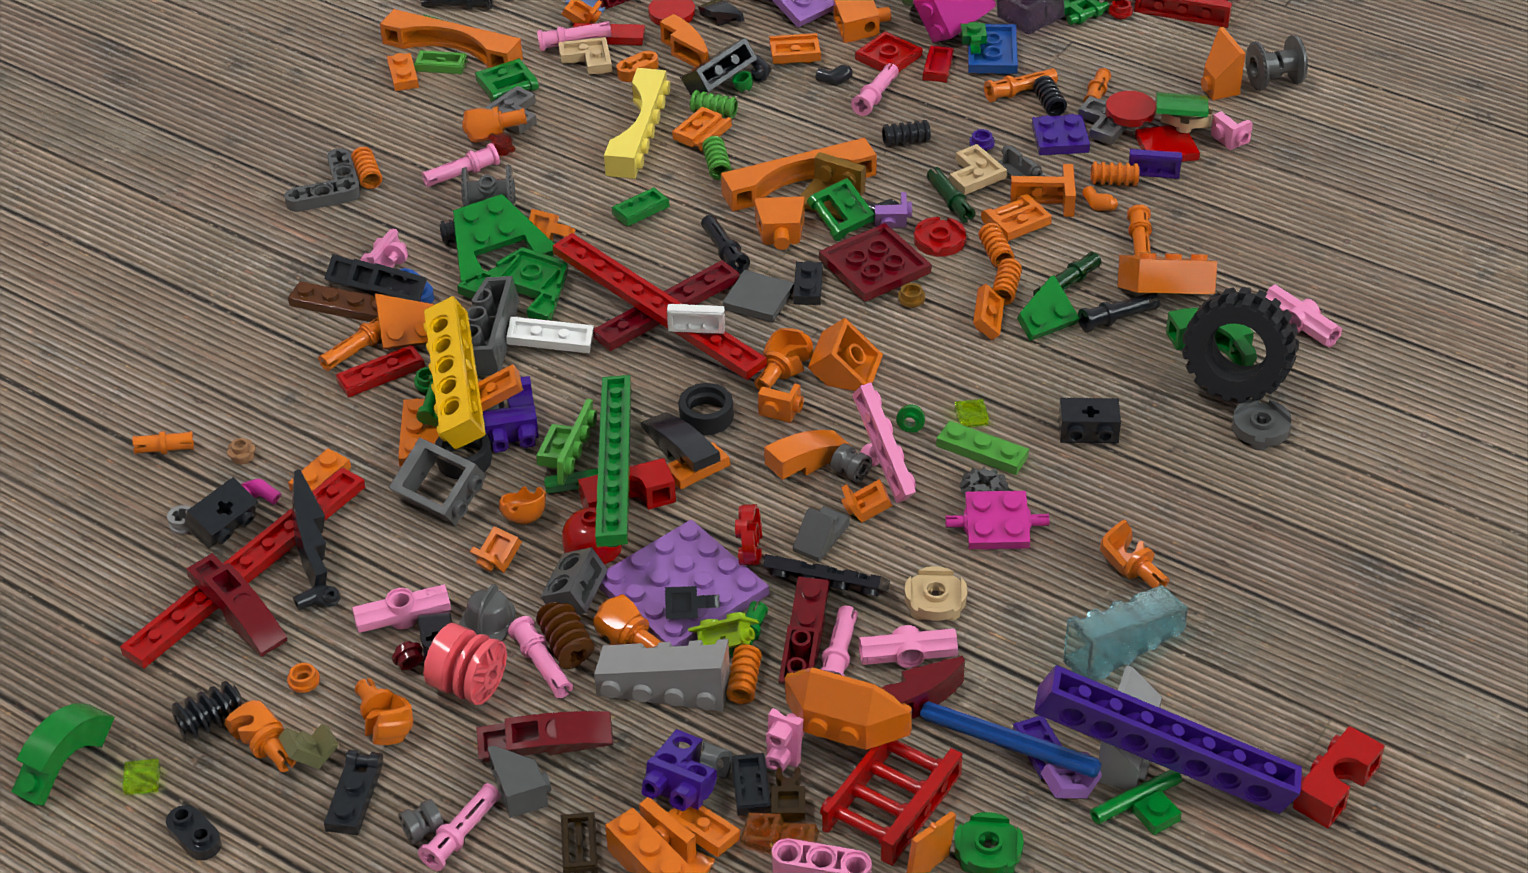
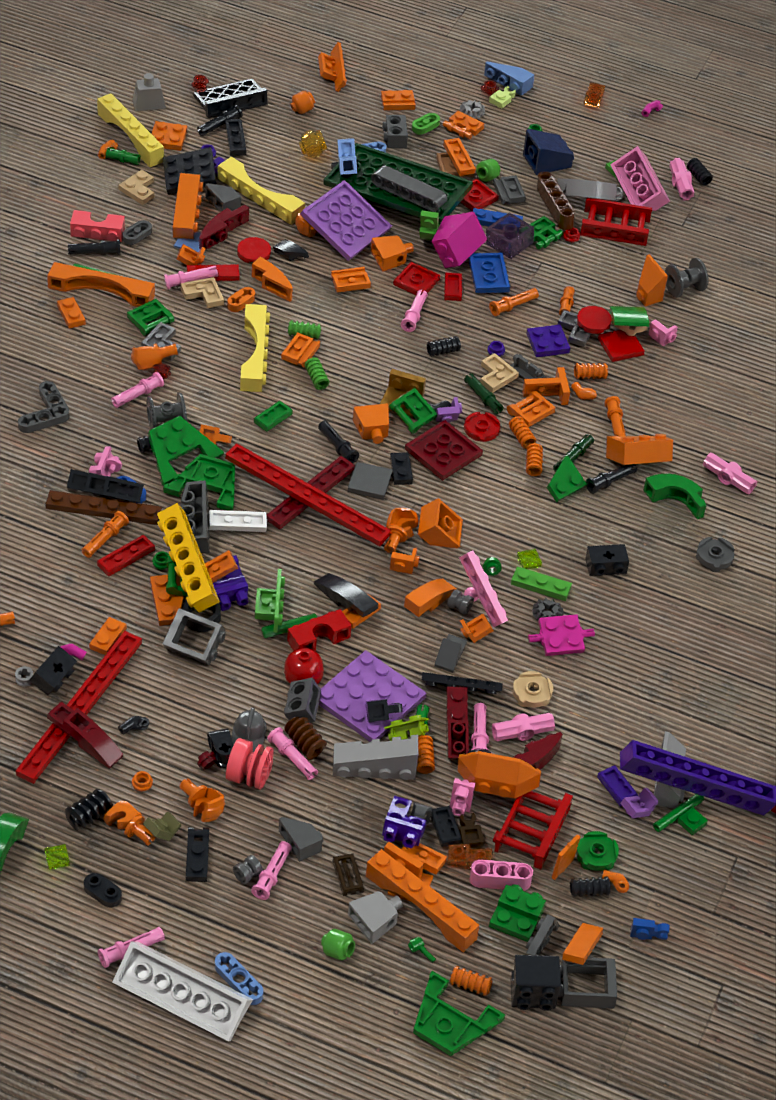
camera: 15 degrees left, 5 degrees up
(241, 451) = (49, 622): medium nougat plate -> none
(308, 526) = (115, 673): black slope -> none
(366, 167) = (70, 395): orange piece -> none
(401, 321) = (137, 518): orange wing -> none
(401, 608) = (193, 728): bright pink piece -> none
(440, 62) = (97, 302): bright green tile -> none
(497, 550) = (244, 682): orange bracket -> none
(523, 506) = (253, 649): orange hair -> none
(547, 733) = (311, 805): dark red slope -> none
(614, 462) = (310, 613): green plate -> none
(623, 623) = (342, 728): orange piece -> none
(696, 318) = (340, 505): white plate -> none
(707, 394) = (359, 558): black tyre -> none
(719, 67) = (302, 300): black brick -> none
(742, 81) = (317, 306): green hinge -> none
(749, 529) = (408, 659): red plate -> none
(759, 180) = (344, 394): orange arch -> none
(762, 69) = (331, 297): black arm -> none
(835, 76) = (383, 301): black arm -> none
(911, 295) = (473, 474): pearl gold plate -> none
(974, 35) = (477, 264): green plate -> none
(988, 312) = (527, 483): orange plate -> none
(1011, 739) = (599, 783): blue axle -> none
(1049, 96) = (536, 310): black piece -> none
(1123, 632) = (654, 707): clear light blue wedge -> none
(1134, 564) = (650, 659): orange piece -> none
(1157, 163) = (617, 361): dark purple plate -> none
(1225, 376) = (696, 524): black tyre -> none

